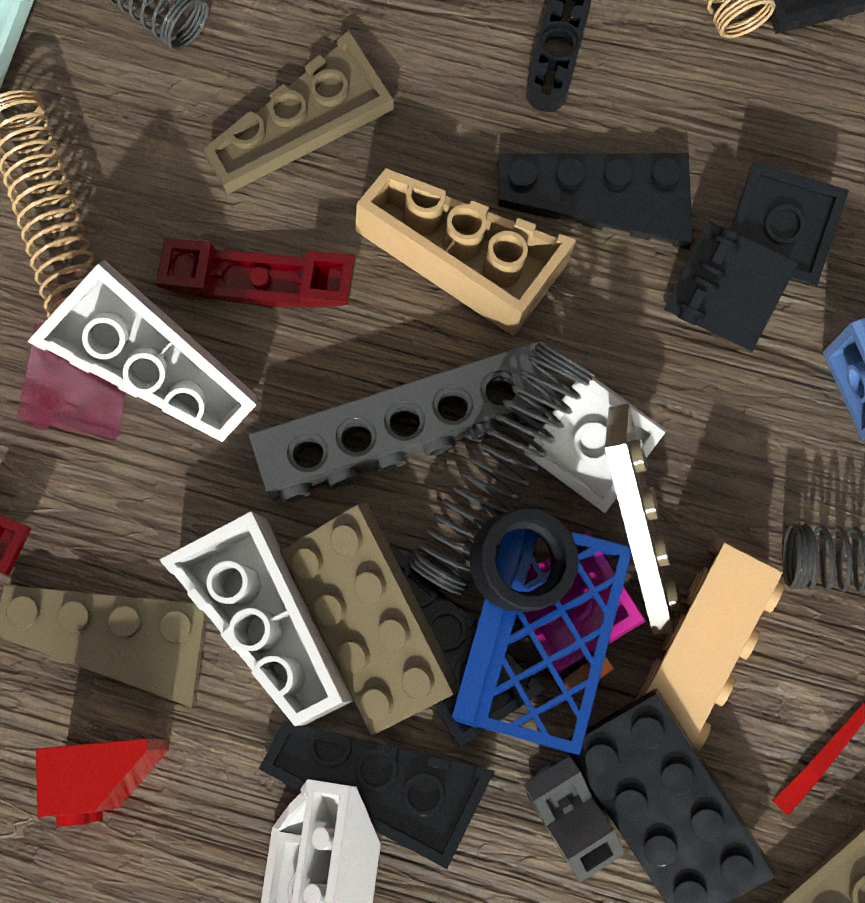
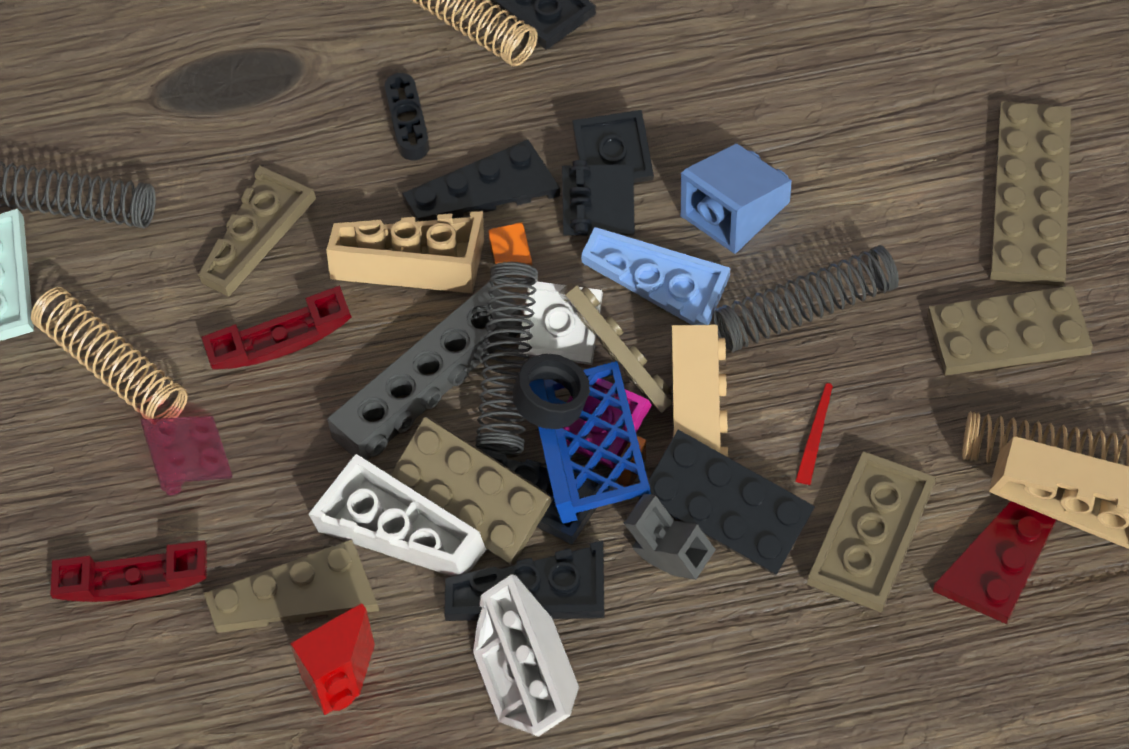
camera: 25 degrees left, 20 degrees down
(133, 344) = (232, 397): white wedge -> none
(589, 297) = (509, 244): none -> orange slope
(758, 437) = (665, 277): none -> light blue wing

